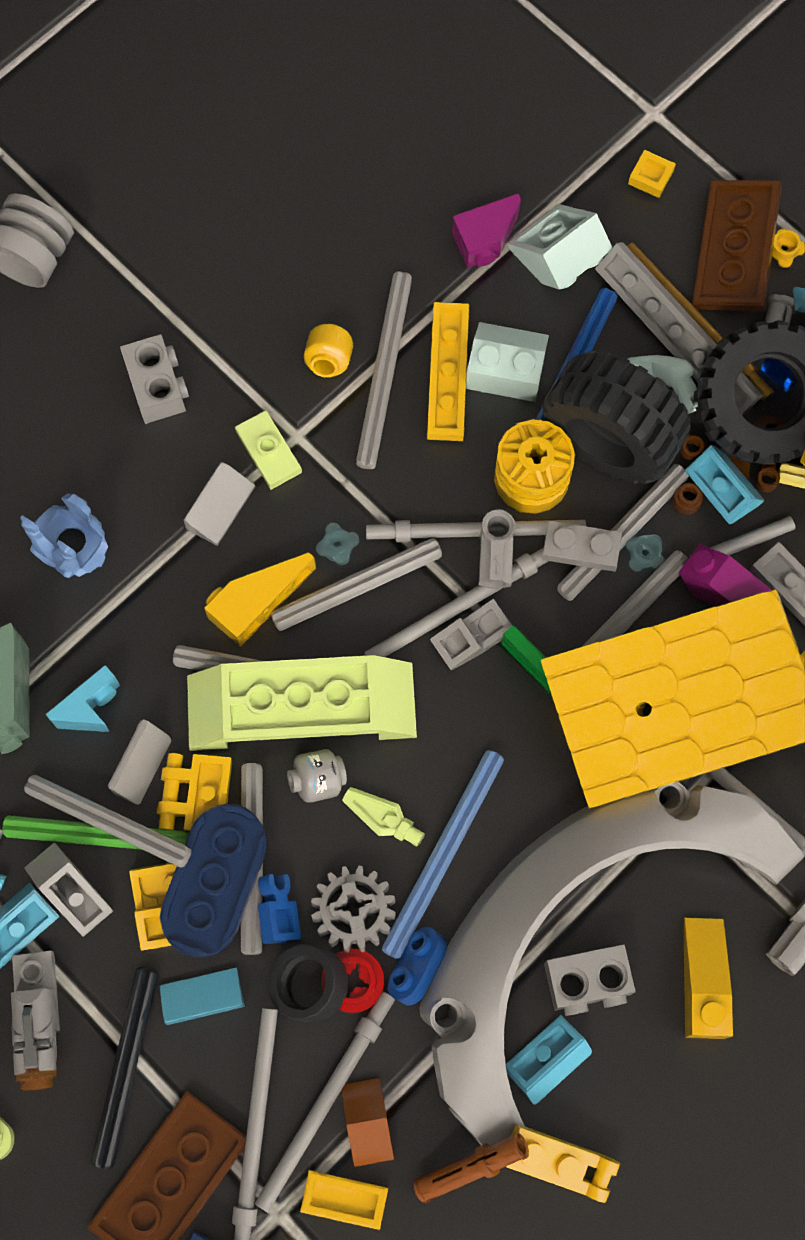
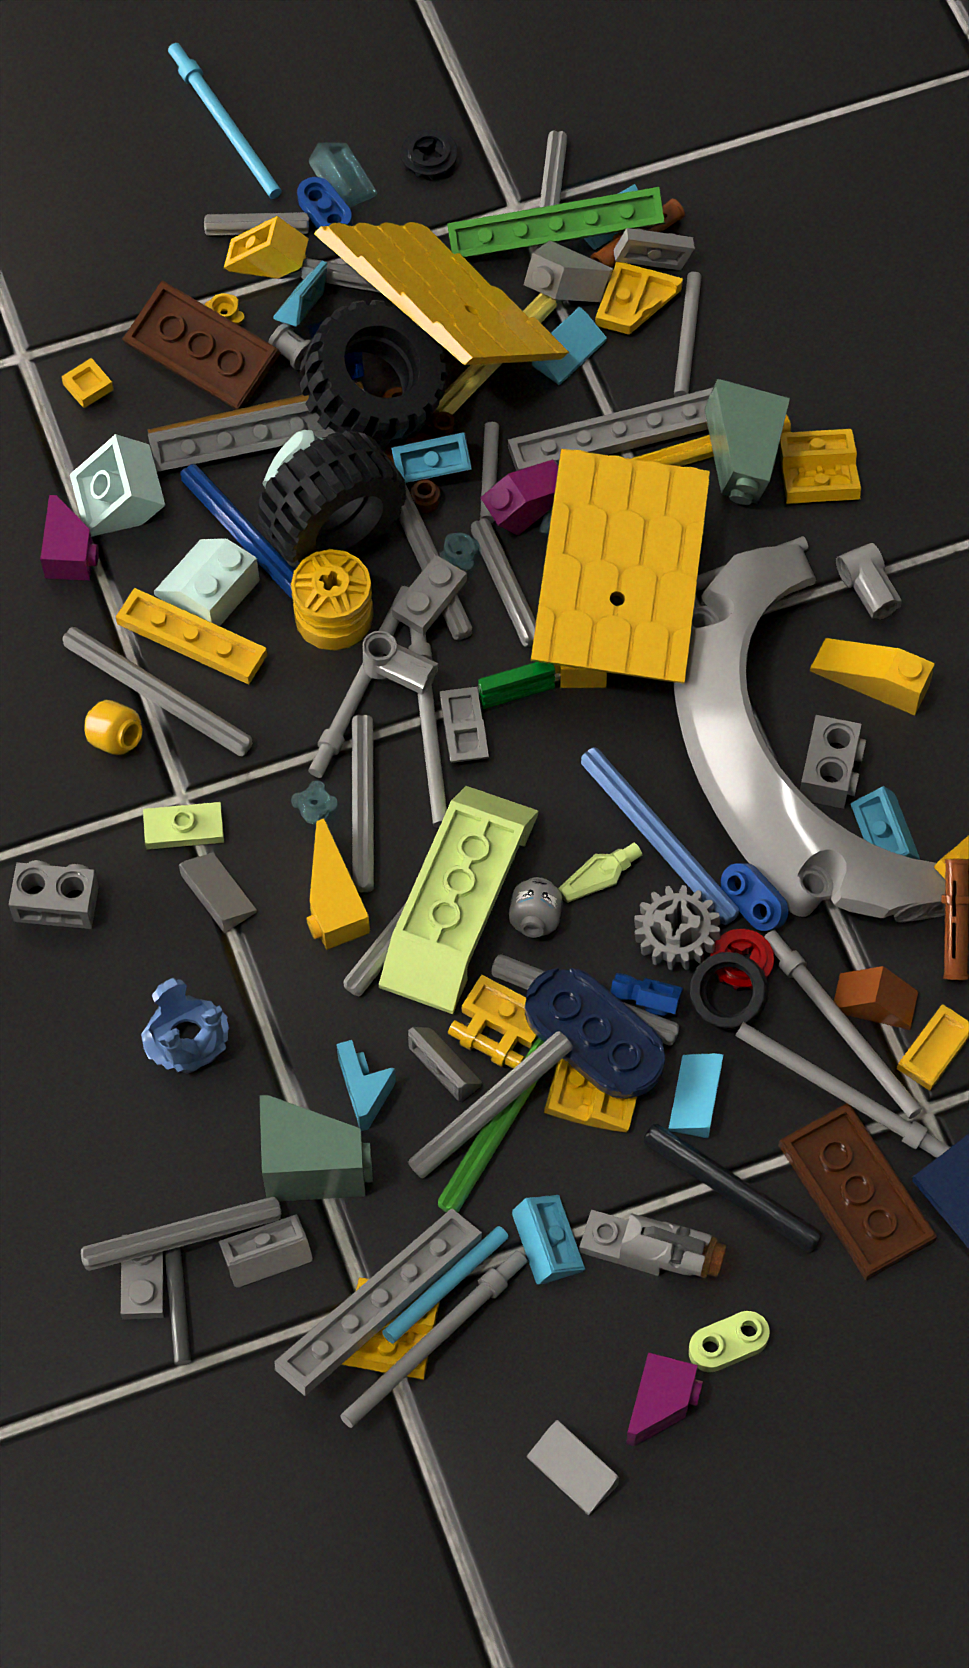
camera: 65 degrees left, 10 degrees down
(68, 889) = (537, 1169): light grey slope -> none

